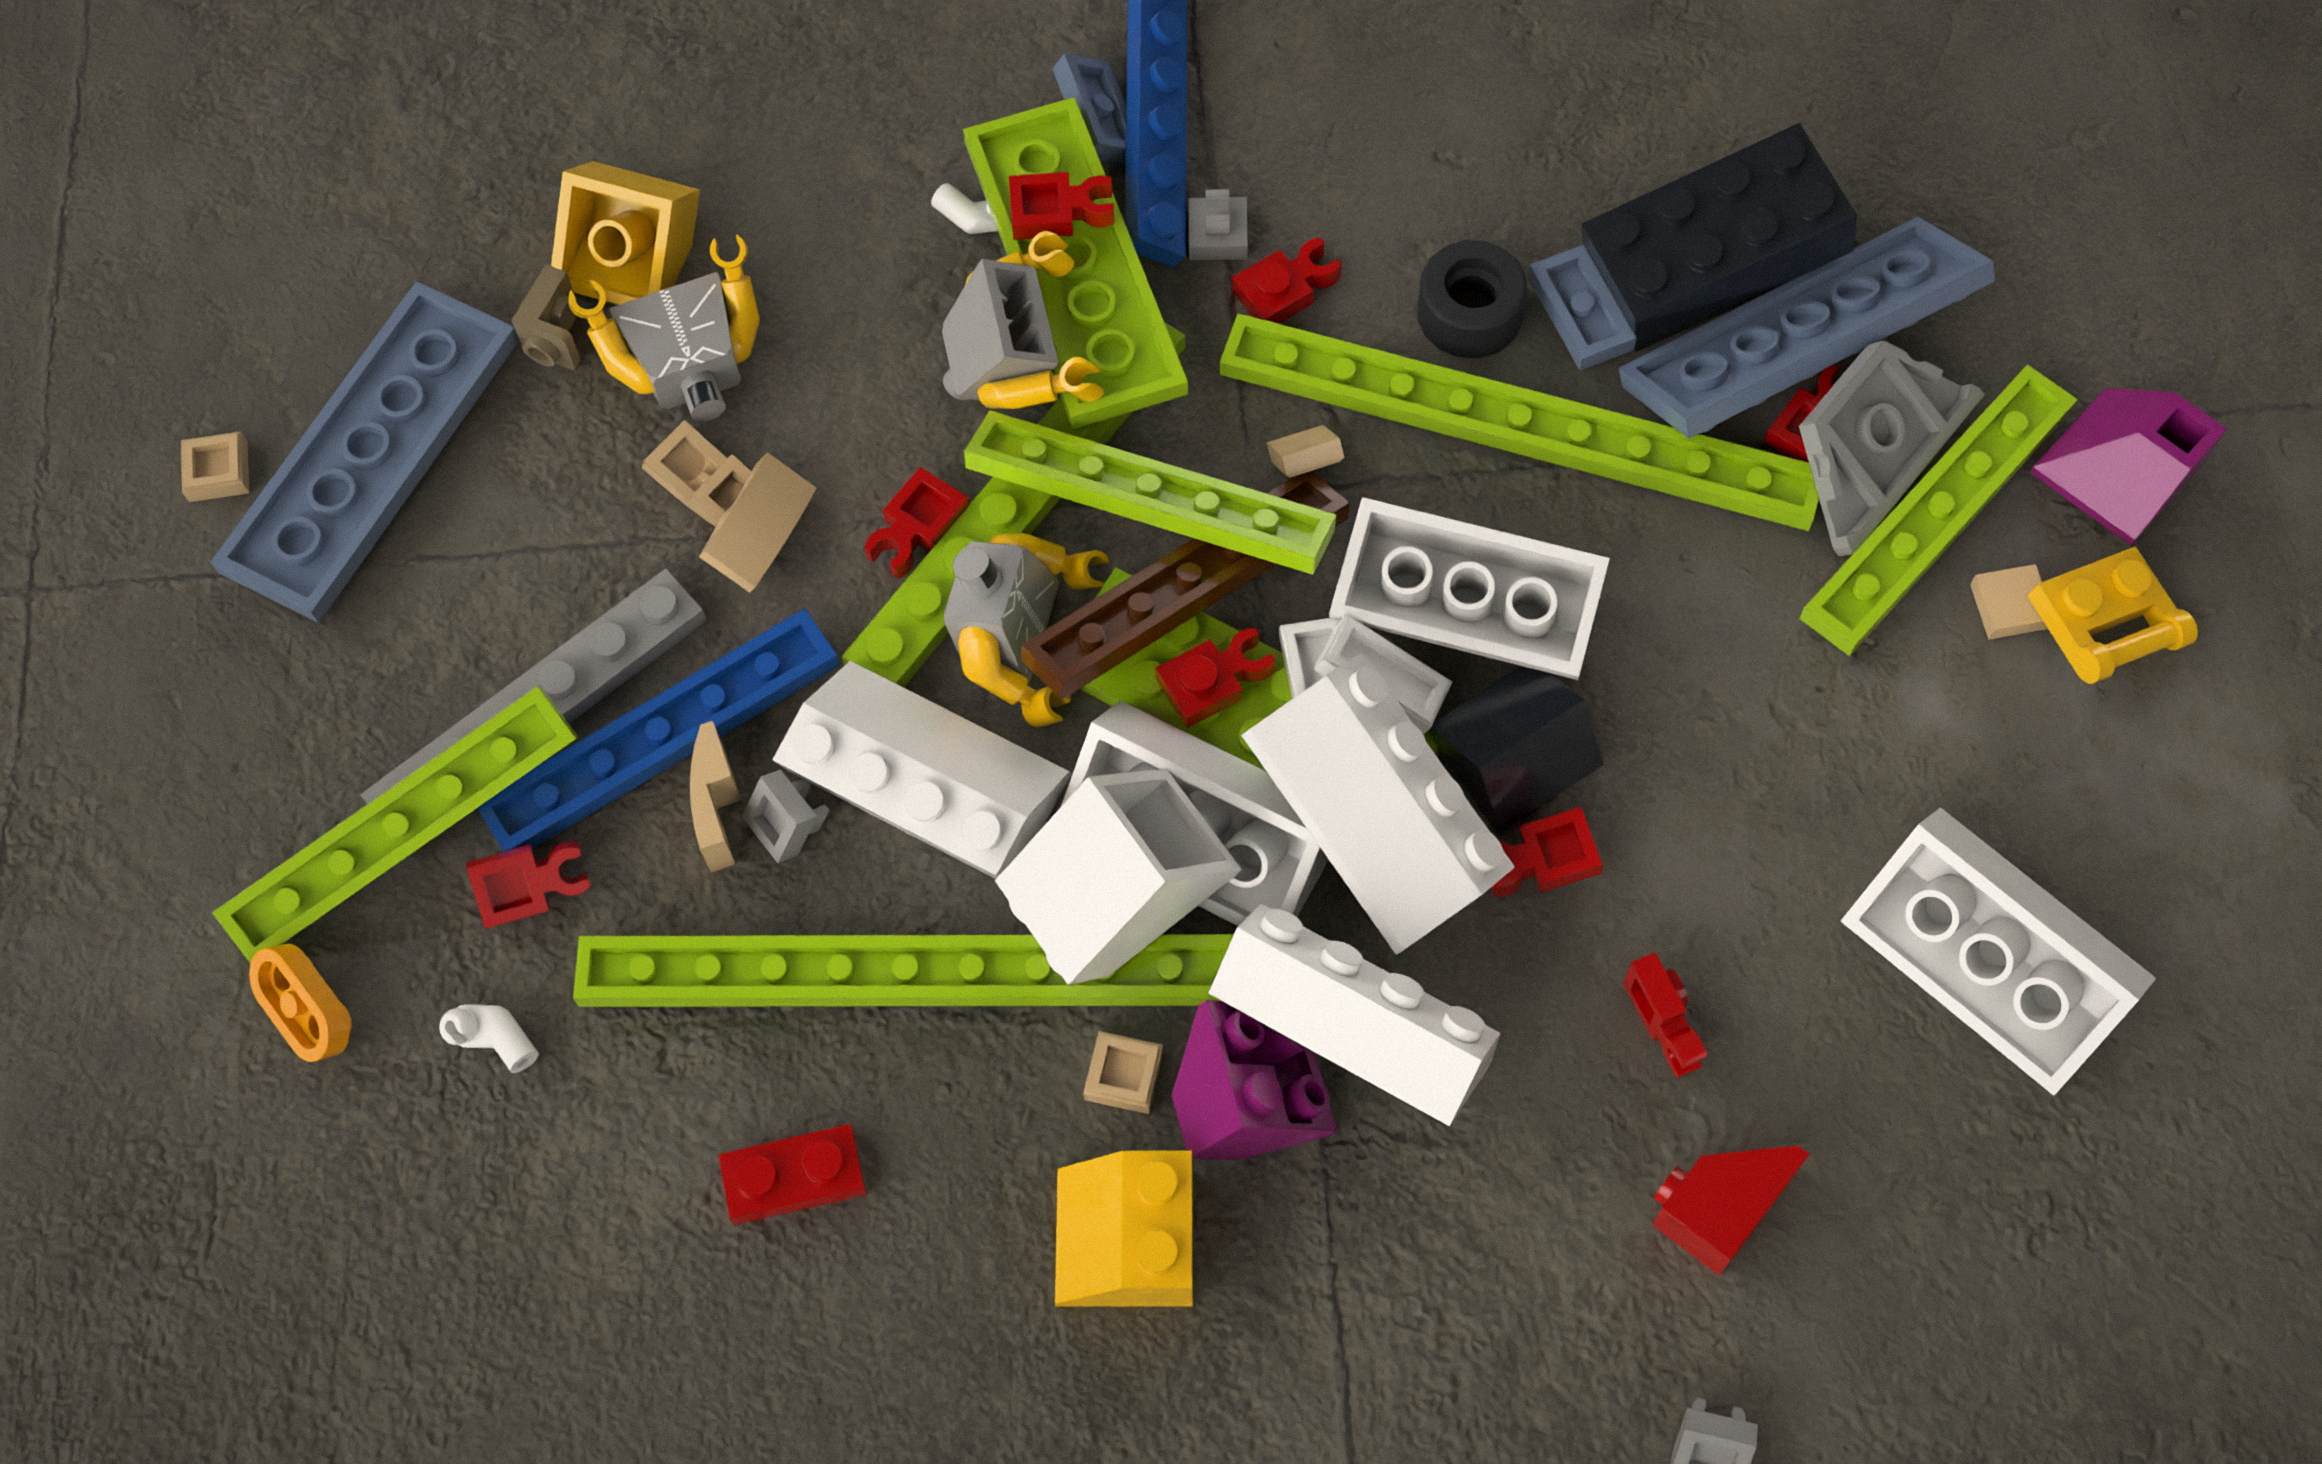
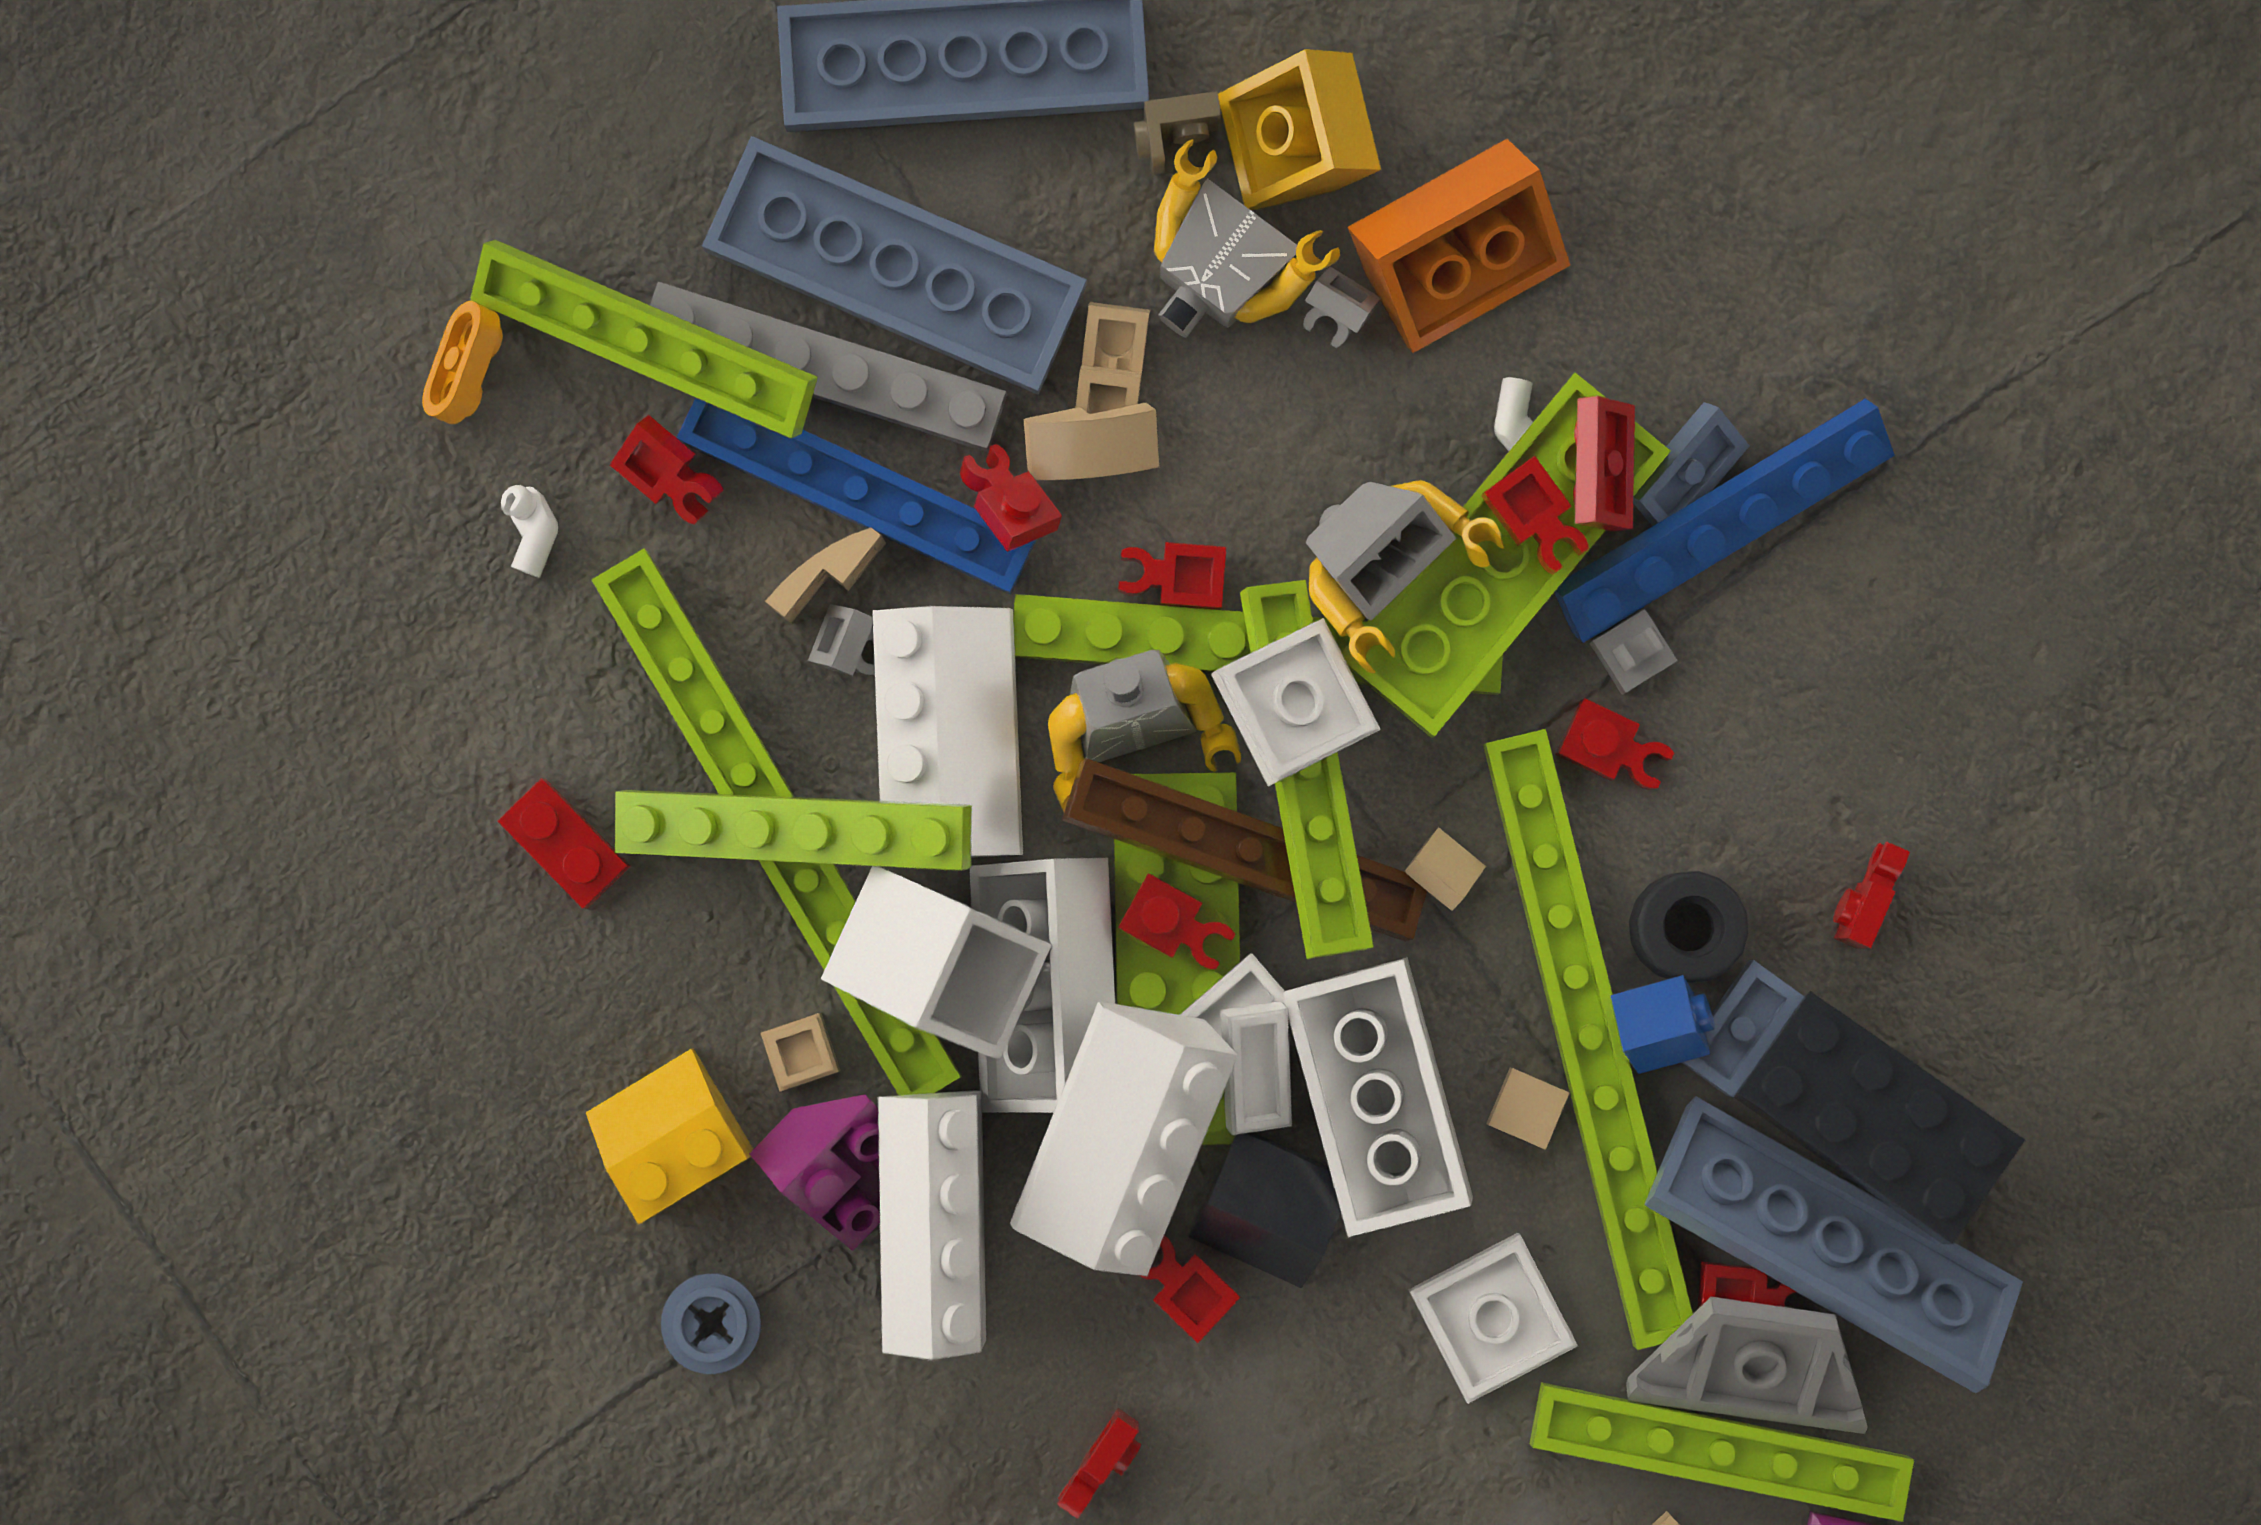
camera: 55 degrees right, 20 degrees up
(493, 597) = (894, 265): none -> sand blue plate
(765, 610) = (1009, 505): none -> red plate
(784, 278) = (1343, 301): none -> light grey tile
(802, 170) = (1461, 244): none -> orange slope
(915, 940) = (794, 829): none -> lime plate
(1034, 127) = (1604, 463): none -> red plate
(1086, 460) = (1295, 701): none -> white tile
(1343, 1271) = (682, 1324): none -> sand blue gear
(1537, 166) = (1864, 909): none -> red plate
(1542, 349) = (1662, 1024): none -> blue brick
(1551, 502) = (1527, 1108): none -> tan tile
(1719, 627) = (1493, 1318): none -> white tile

